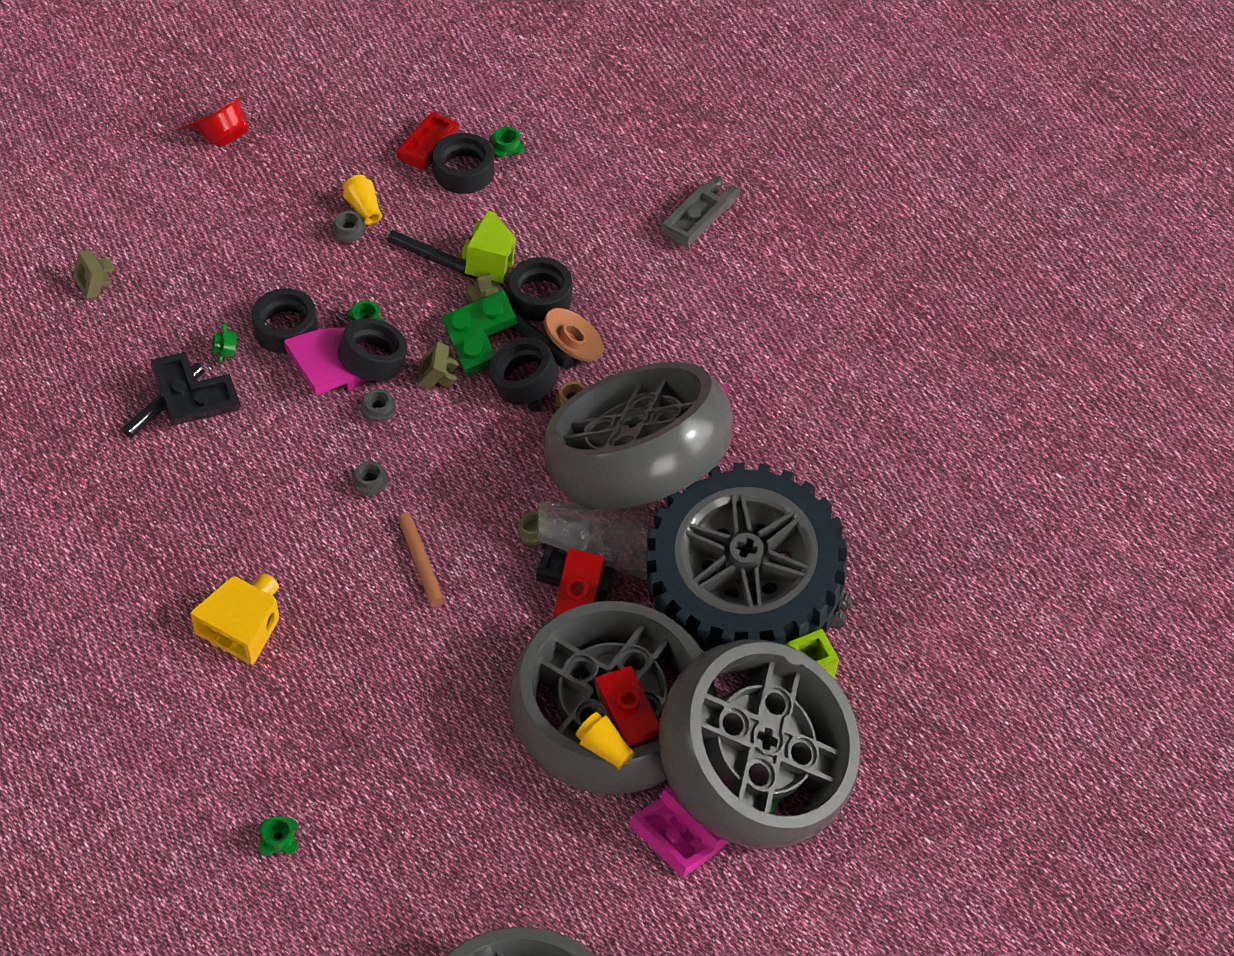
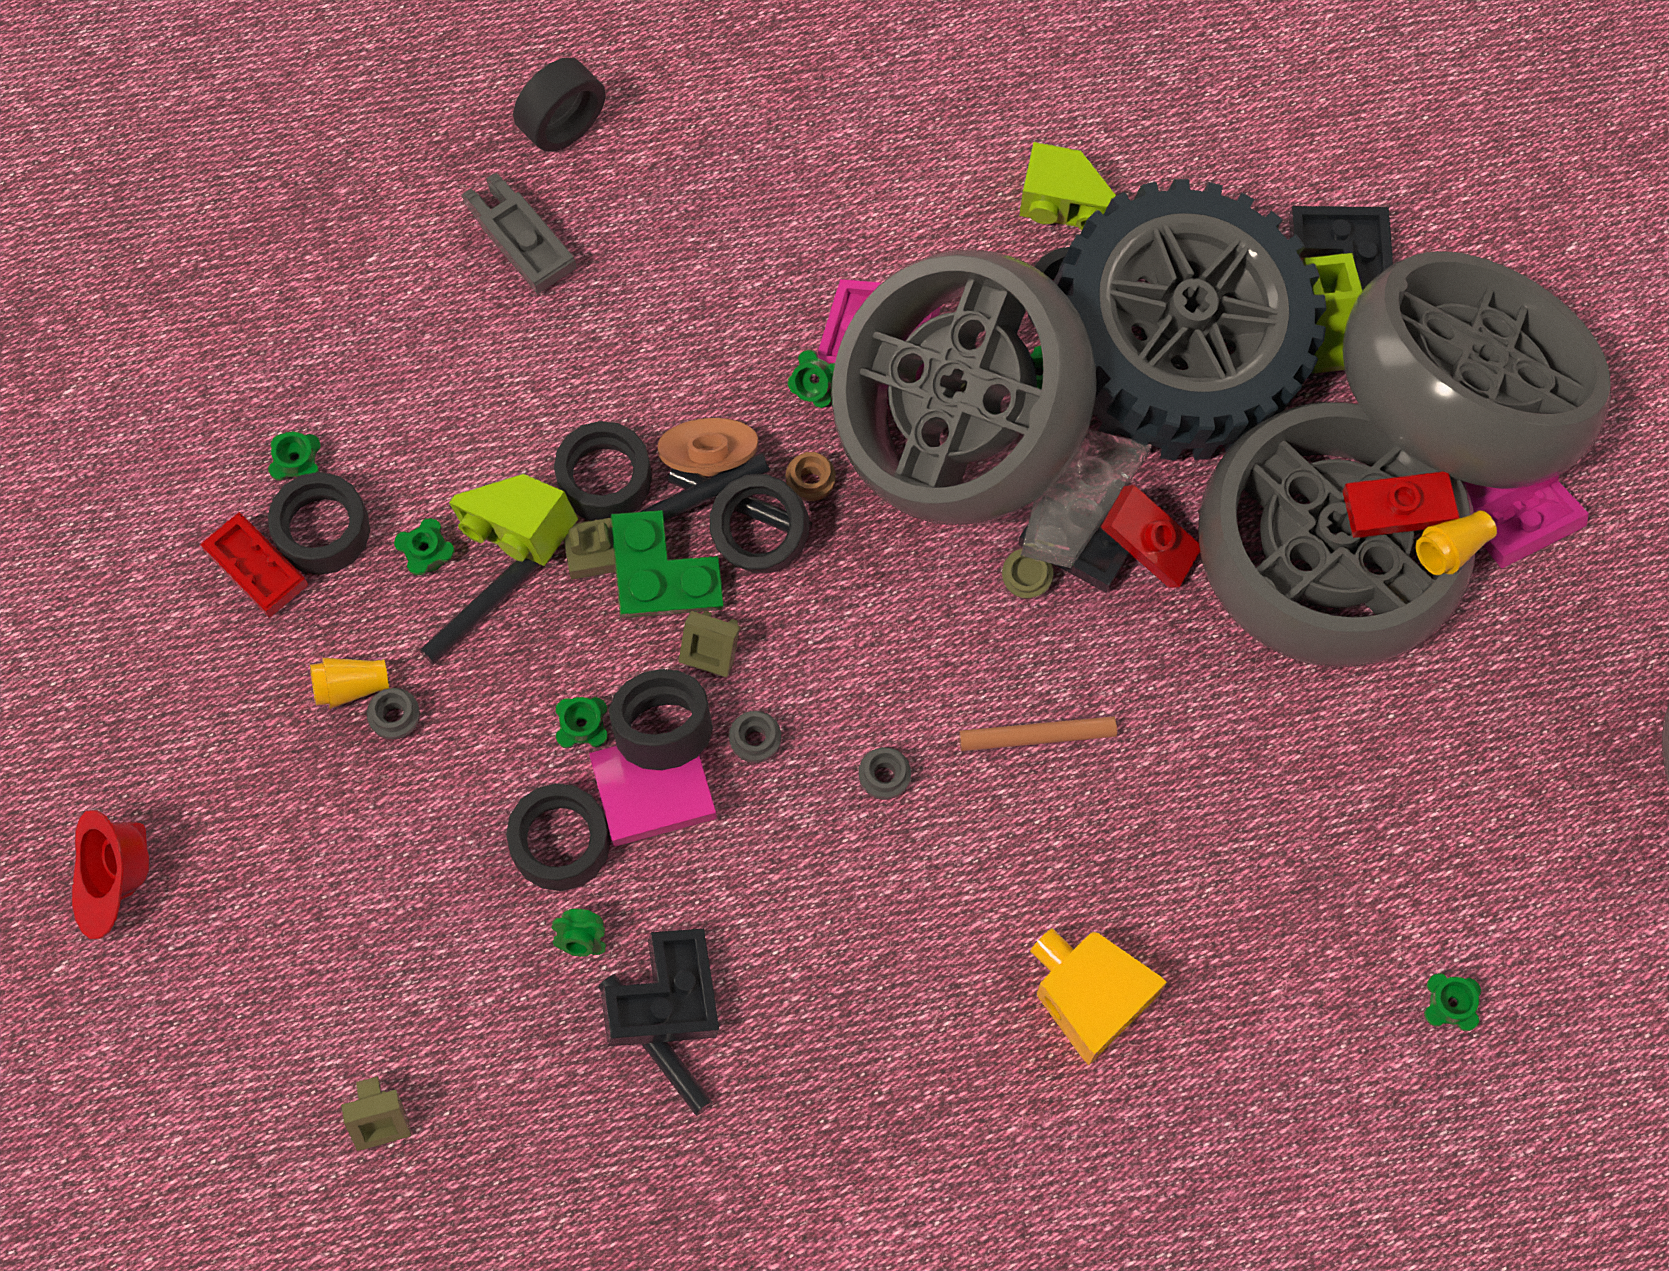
camera: 75 degrees left, 15 degrees up
(463, 217) = (424, 560): none -> green plate
(802, 188) = (559, 104): none -> black tyre
(846, 488) = (1062, 187): none -> lime slope
(873, 678) = (1343, 231): none -> black plate

